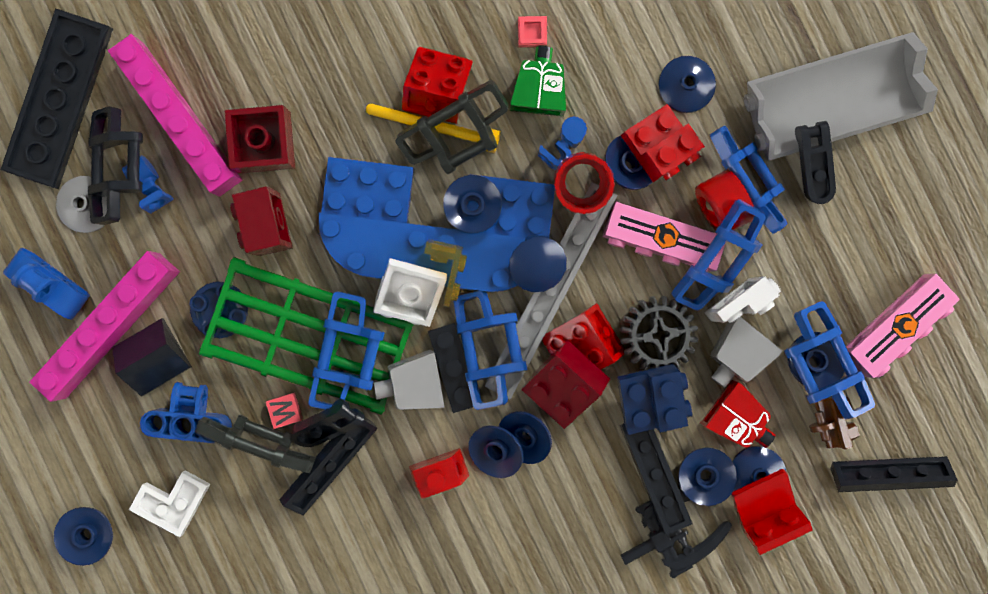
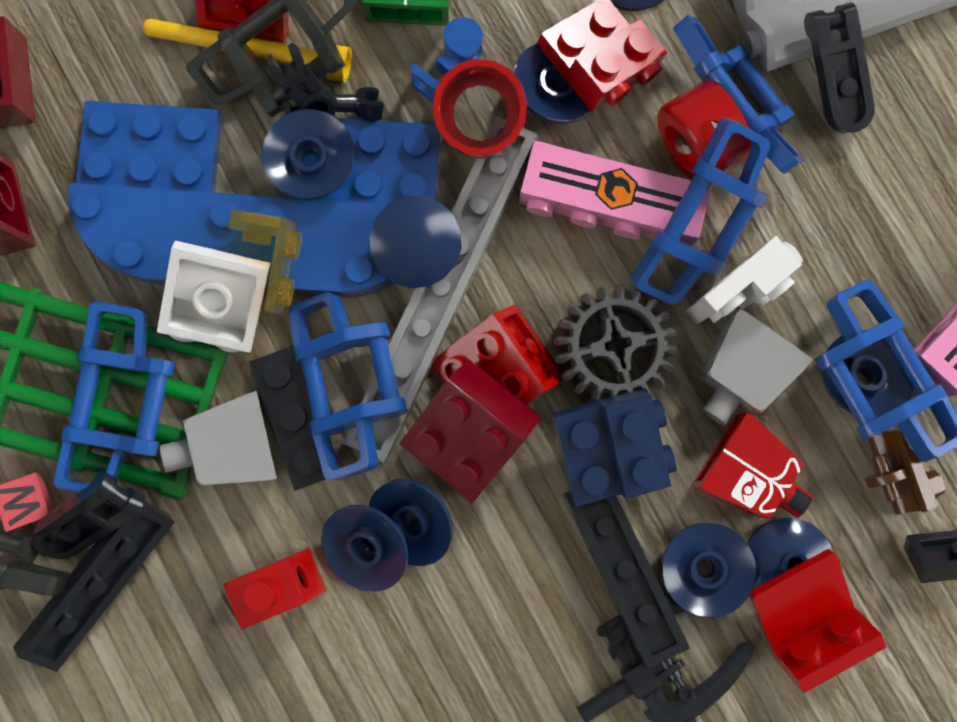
camera: 10 degrees left, 5 degrees down
(477, 165) = (309, 92): none -> black piece

